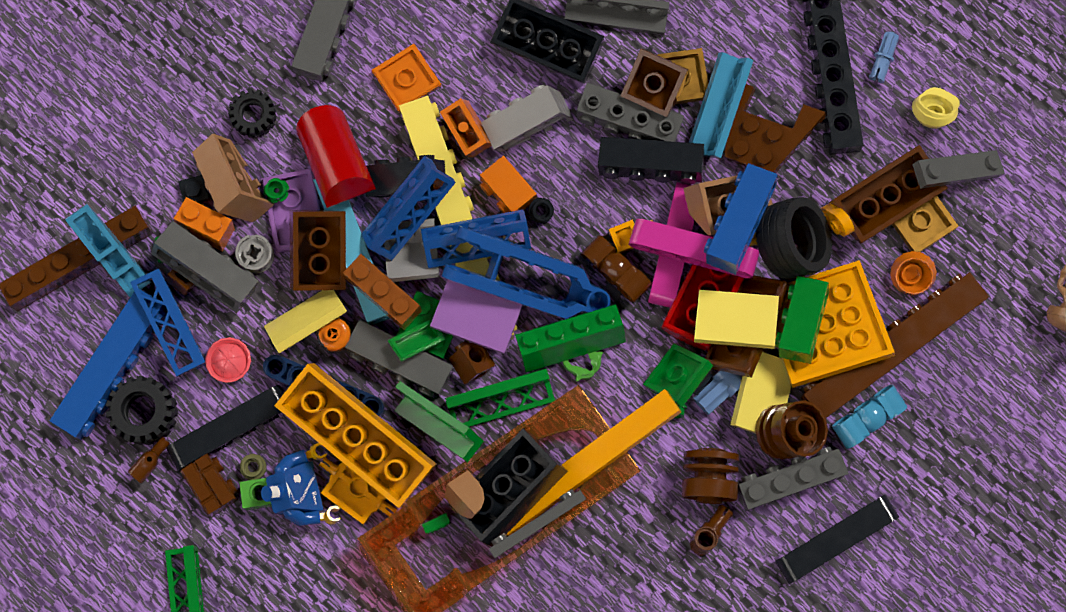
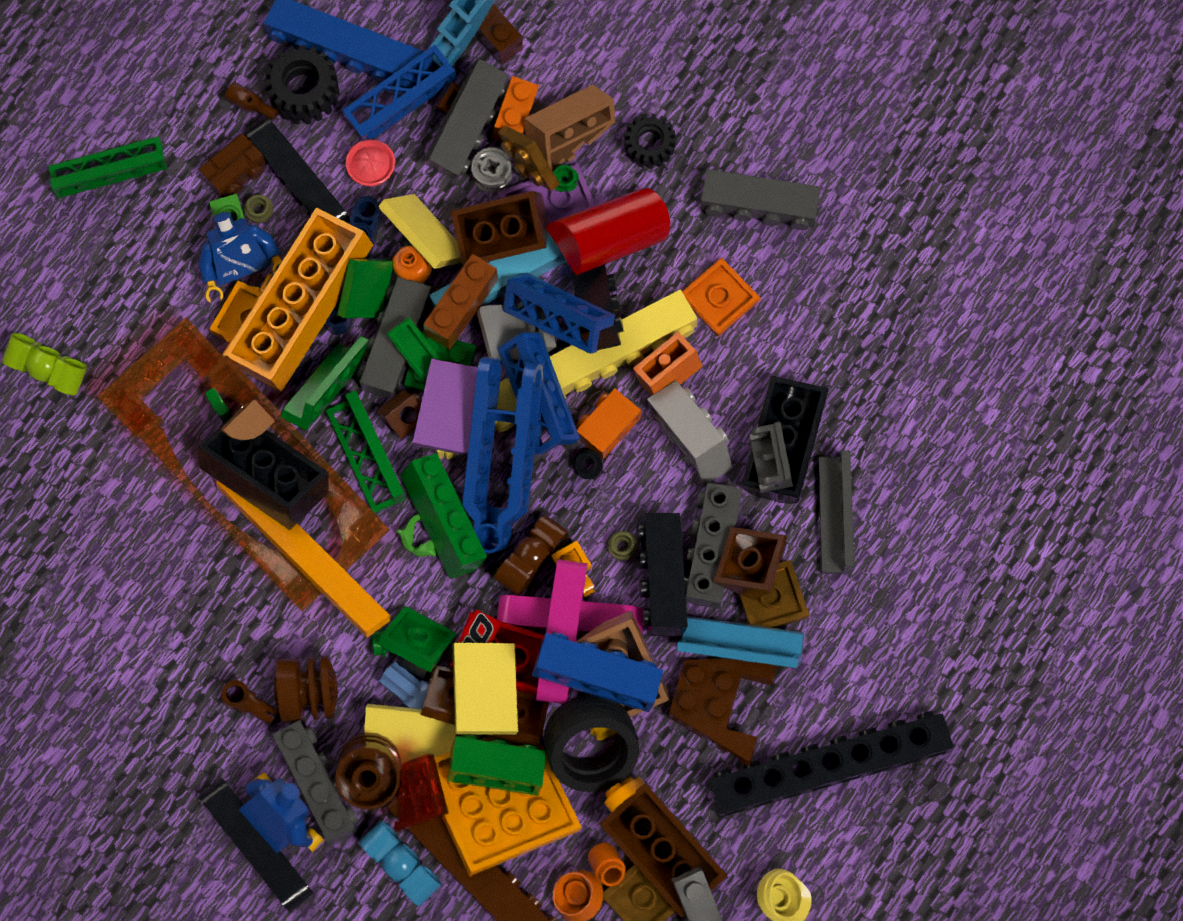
camera: 80 degrees right, 5 degrees down
(194, 189) = (552, 93): black plate -> none
(255, 215) = (528, 158): none -> pearl gold plate
(353, 376) = (365, 288): none -> green tile
(504, 543) = (200, 472): dark grey plate -> none
(567, 51) = (770, 457): none -> dark grey hinge
(620, 185) = (625, 537): none -> olive plate
(681, 319) = (480, 629): none -> sticker
(817, 513) = (279, 814): none -> blue torso
(821, 385) = (420, 793): none -> clear red wing
(884, 57) = (837, 830): medium blue axle -> none
(892, 244) = (606, 864): none -> orange brick

